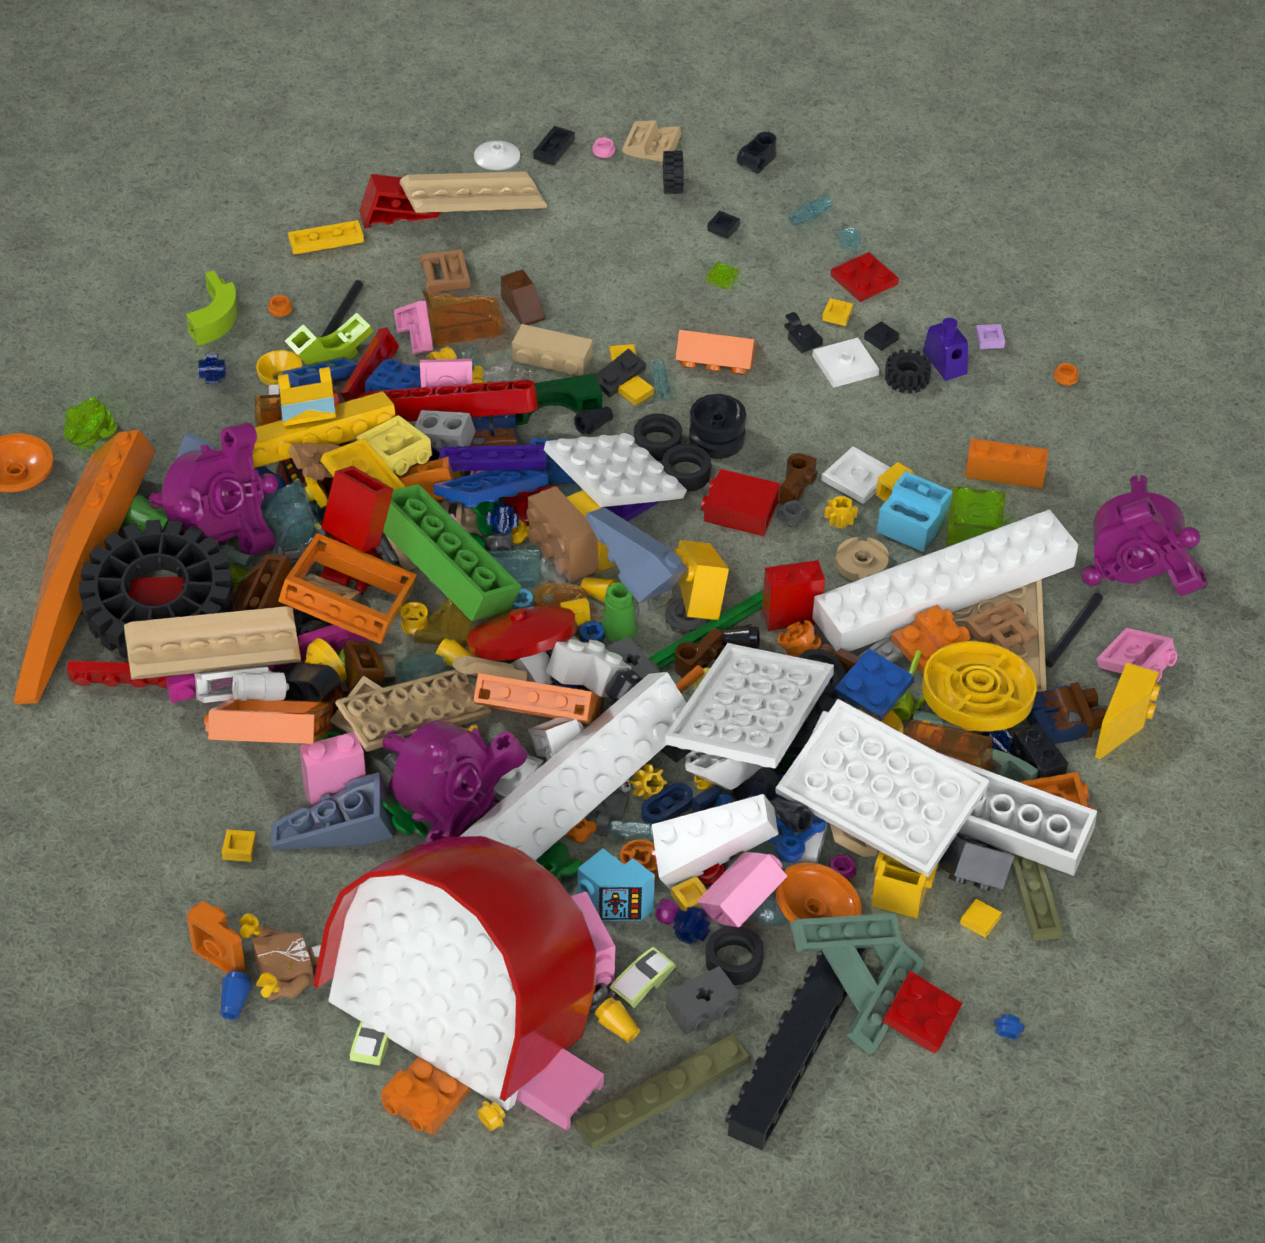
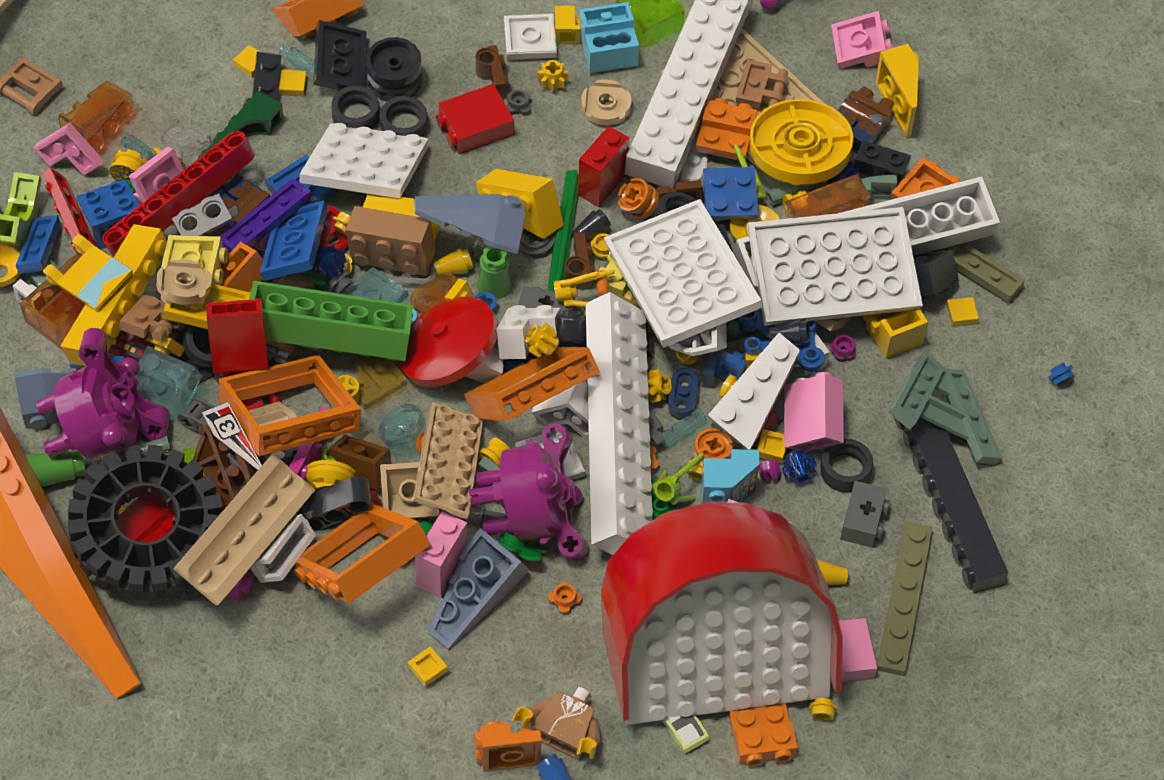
camera: 45 degrees left, 10 degrees up
(108, 674) = (169, 617): red plate -> none
(259, 686) = (313, 534): white piece -> none
(275, 567) = (228, 430): none -> sticker
(348, 441) = (173, 291): none -> tan plate
(451, 650) = (411, 395): yellow cone -> none
(473, 666) = (461, 390): tan slope -> none
(521, 297) = (119, 66): reddish brown slope -> none
(552, 350) = (195, 94): tan brick -> none
(563, 855) = (669, 487): none -> lime plant
(584, 675) = (541, 340): none -> yellow gear
(591, 419) = (289, 133): black cone -> none
(642, 975) = (807, 520): slope -> none
(654, 658) = (567, 289): none -> yellow plant
(683, 387) = (339, 56): none -> black plate
(760, 783) = (741, 329): black plate -> none
(816, 893) = (867, 381): orange dish -> none
(922, 1012) = (1001, 407): red plate -> none
(1073, 630) = (795, 49): black bar -> none

